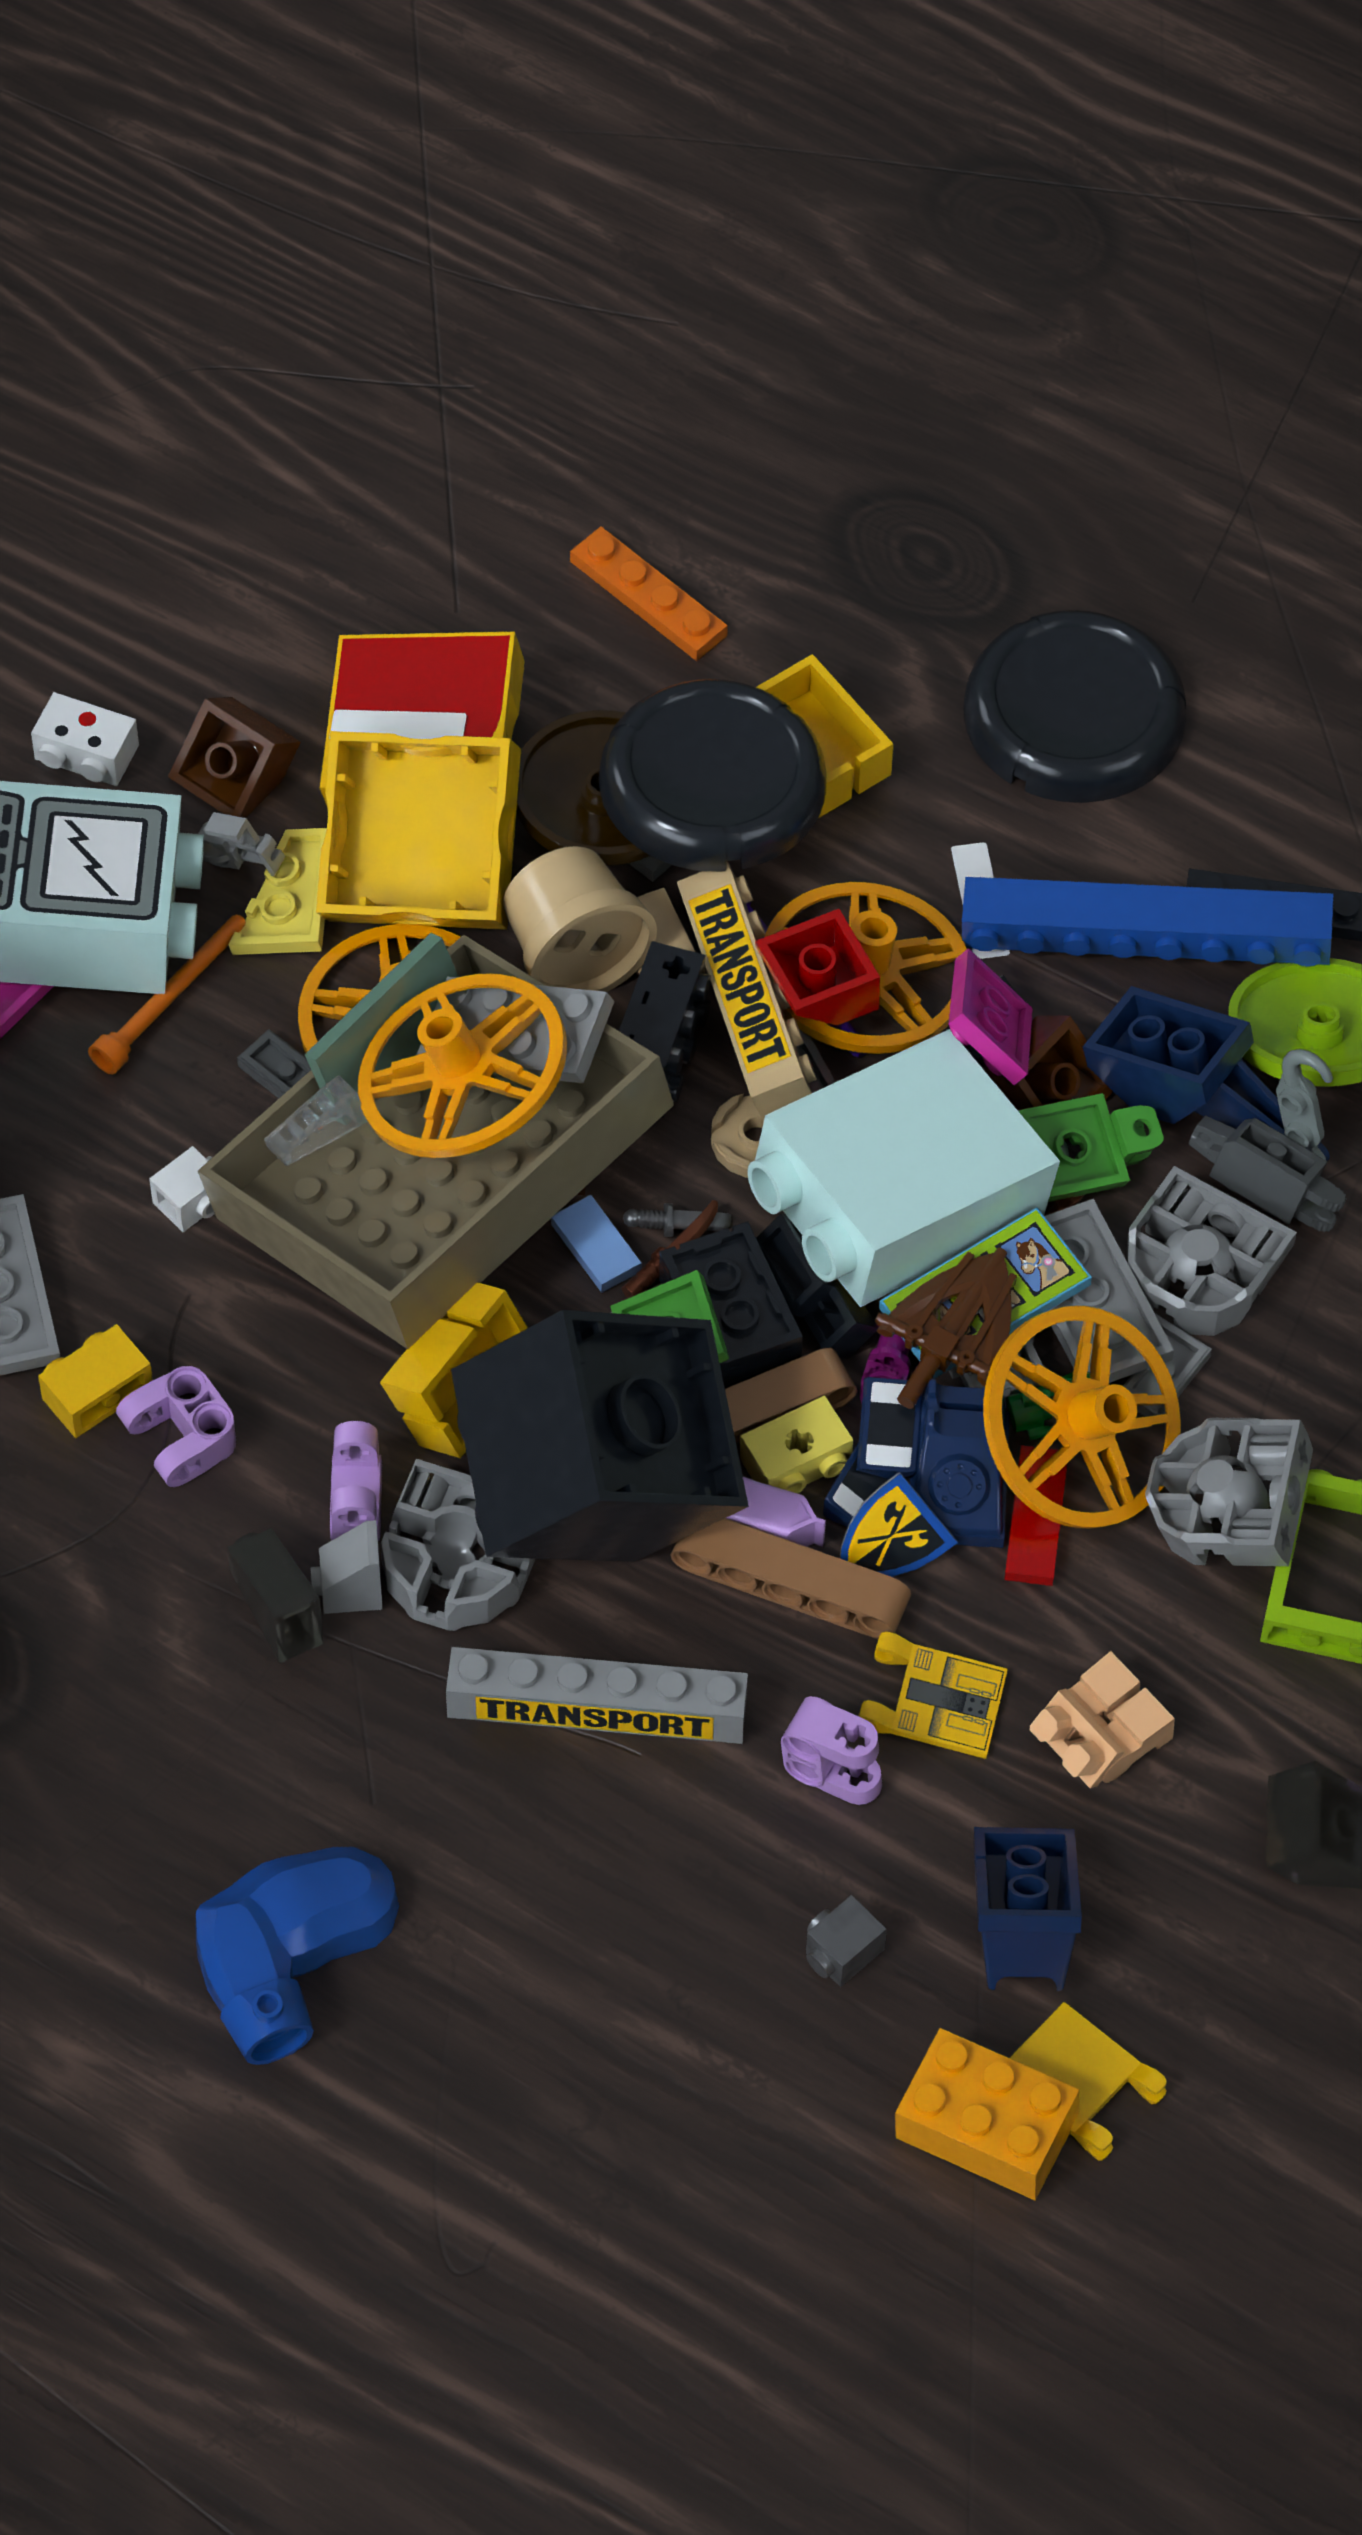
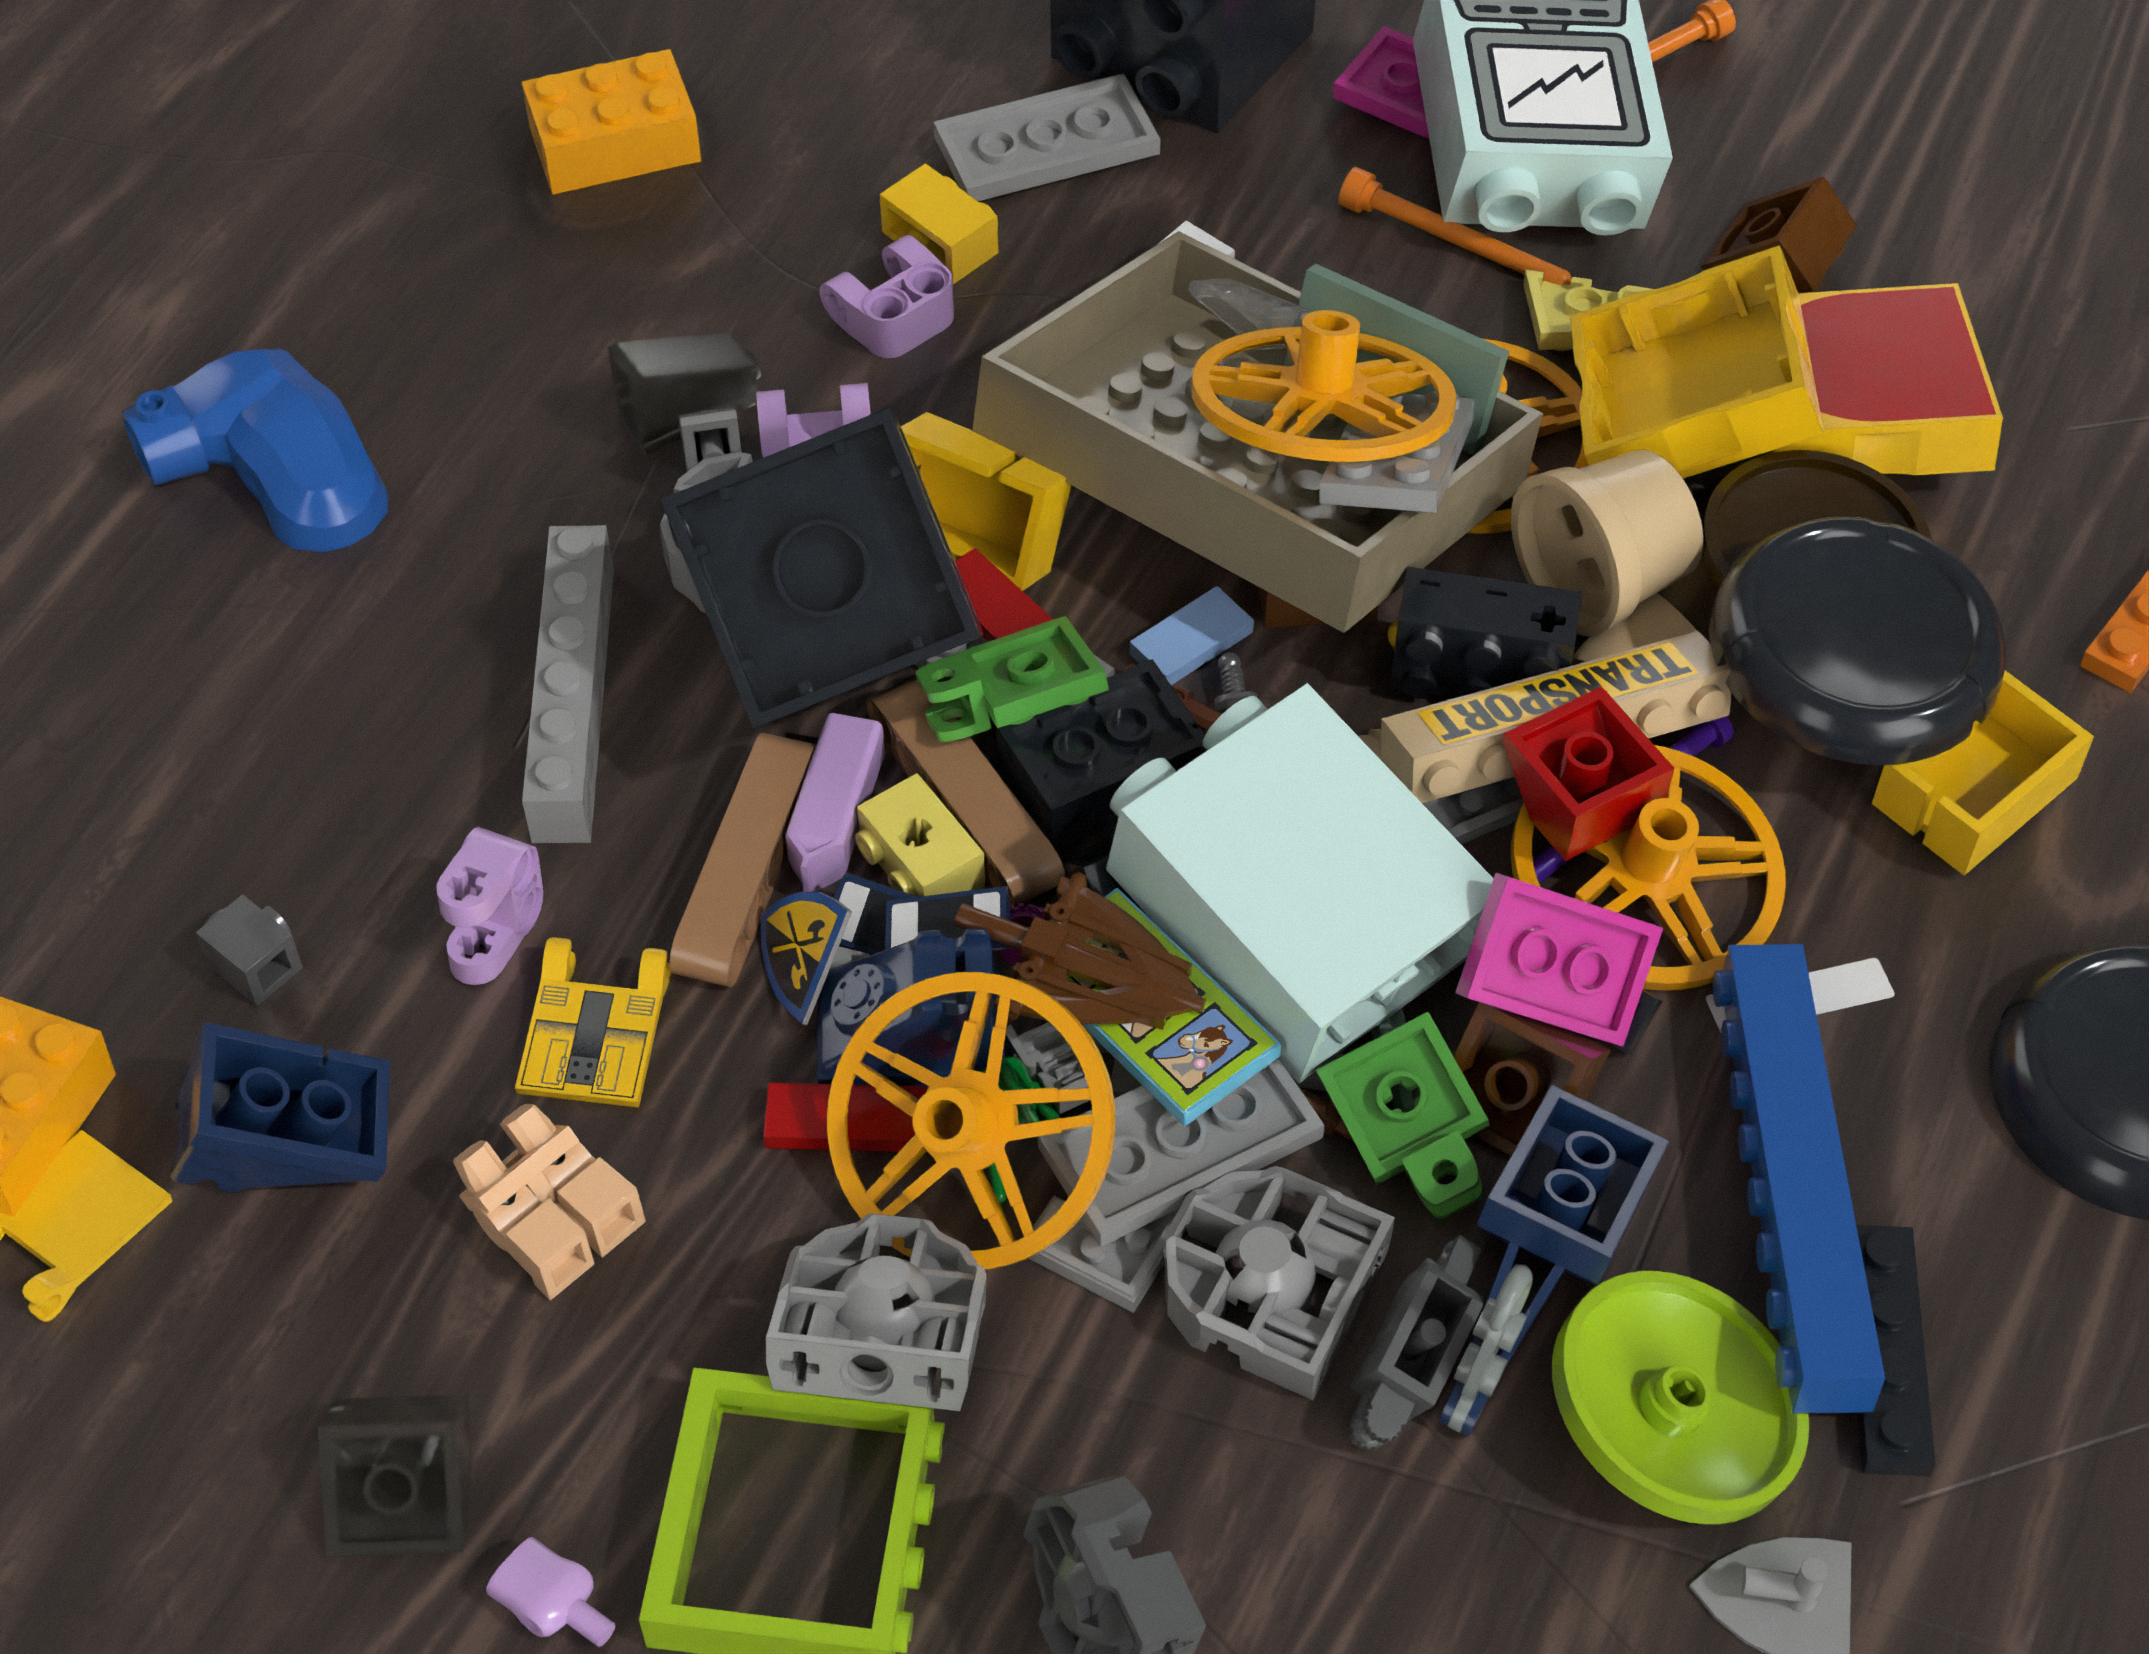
camera: 85 degrees right, 5 degrees down
(85, 739) = (1763, 121): white brick -> none
(233, 840) = (1649, 242): light grey piece -> none
(402, 723) = (1839, 343): white sticker -> none

